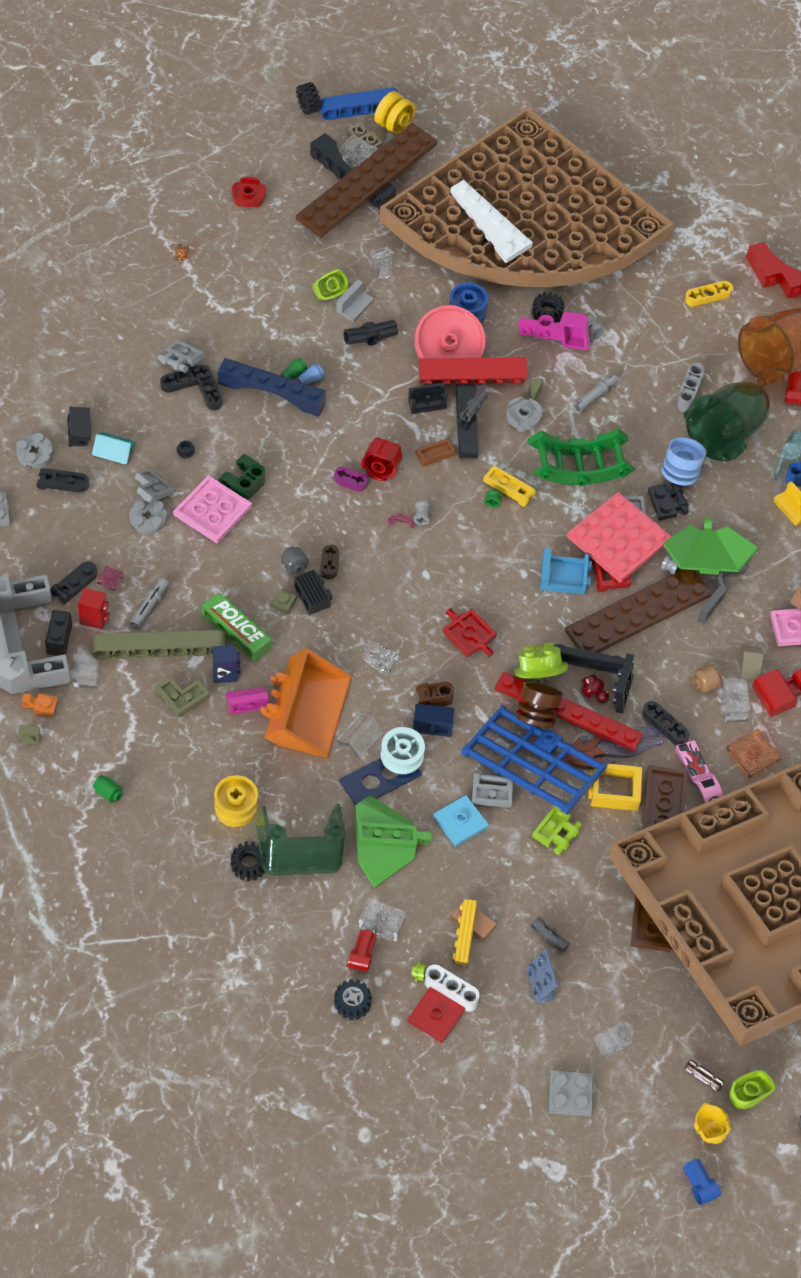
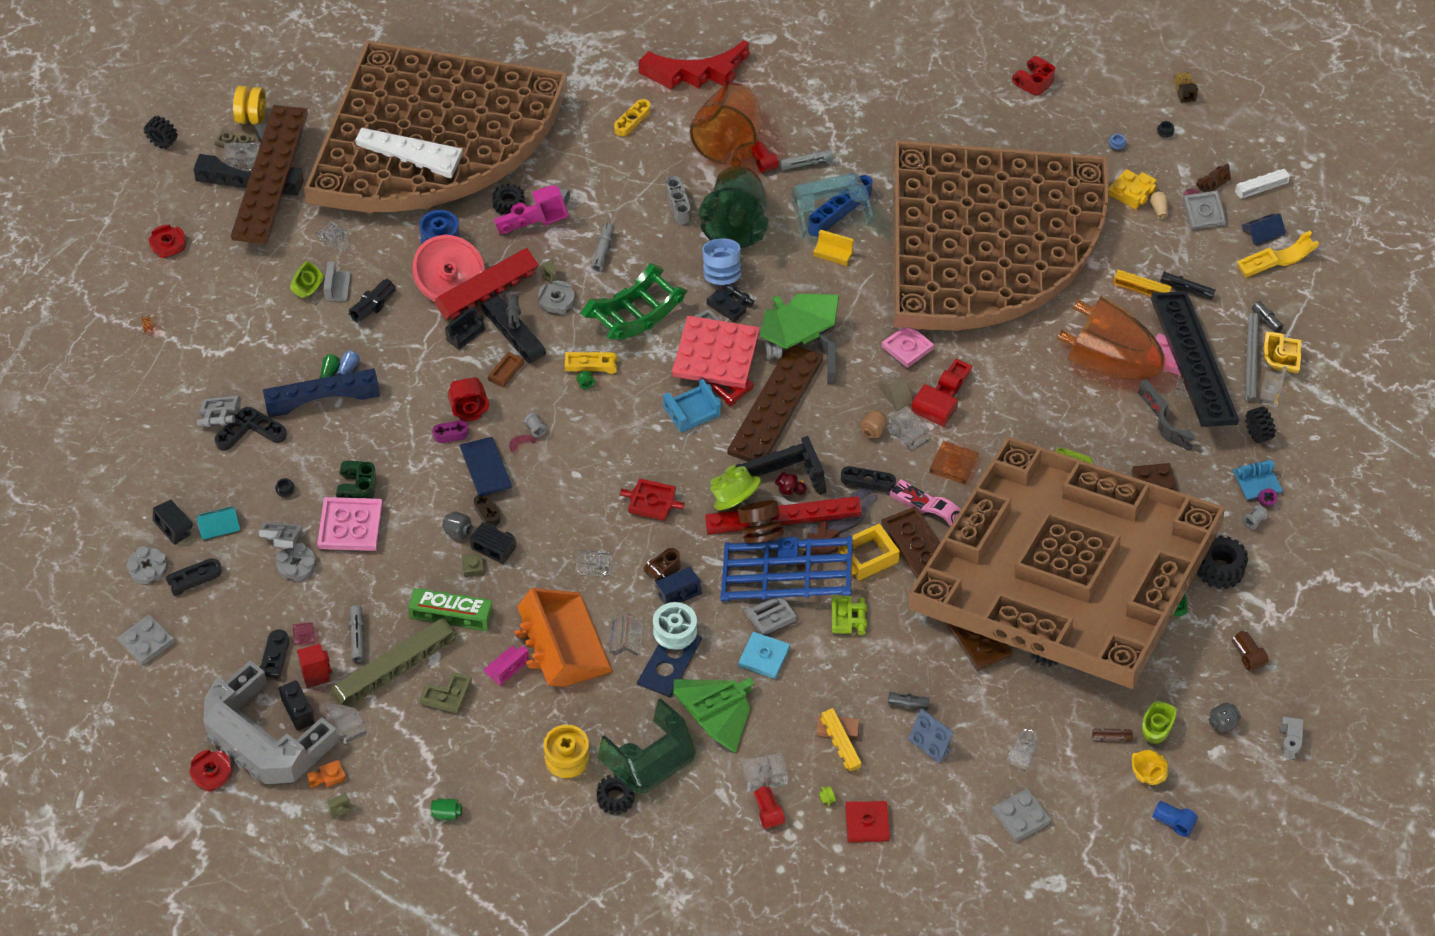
camera: 30 degrees left, 5 degrees down
(225, 663) = (467, 643): dark blue brick -> none
(352, 992) = (787, 844): black wheel -> none
(353, 104) = (206, 115): blue beam -> none
(356, 524) = (485, 466): none -> dark blue piece
(447, 979) = (873, 786): white beam -> none

